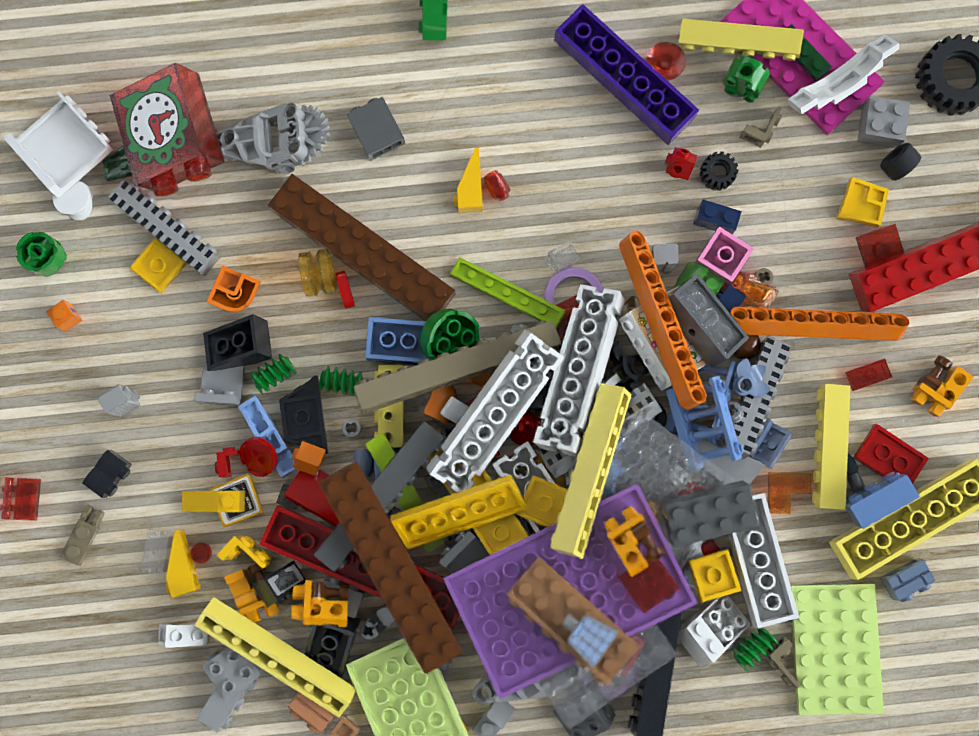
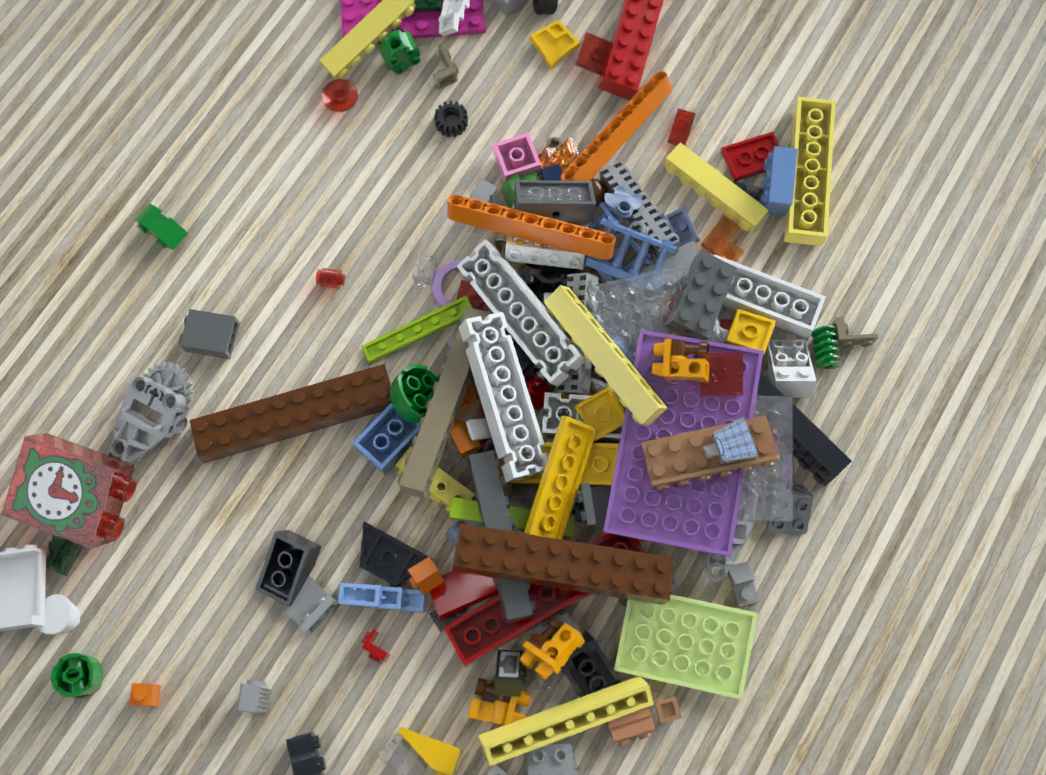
camera: 50 degrees left, 10 degrees down
(158, 265) = (169, 586): yellow tile -> none
(163, 227) = (143, 557): light grey brick -> none
(201, 552) = (432, 725): clear red plate -> none
(213, 501) = (398, 681): yellow slope -> none
(233, 290) = (241, 537): orange brick -> none
(242, 543) = (452, 691): yellow bracket -> none
(252, 503) = (412, 663): tile -> none
(258, 456) = (391, 616): red tile -> none
(272, 373) = (333, 555): green piece -> none
(316, 273) = (285, 457): clear yellow wheel -> none
(339, 381) = (384, 504): green piece -> none
(345, 290) = (314, 449): red beam -> none
(351, 422) = (422, 523): light grey bush -> none
(371, 627) = (598, 627): dark grey piece -> none
(469, 189) = (319, 301): yellow slope -> none
(625, 74) = (325, 128): dark purple brick -> none
(680, 163) = (423, 139): red brick -> none
(713, 215) = (481, 144): dark blue brick -> none
(836, 649) = (869, 292): yellowish green plate -> none
(908, 579) = (851, 207): sand blue brick -> none
(941, 393) = (731, 91): light orange hips -> none

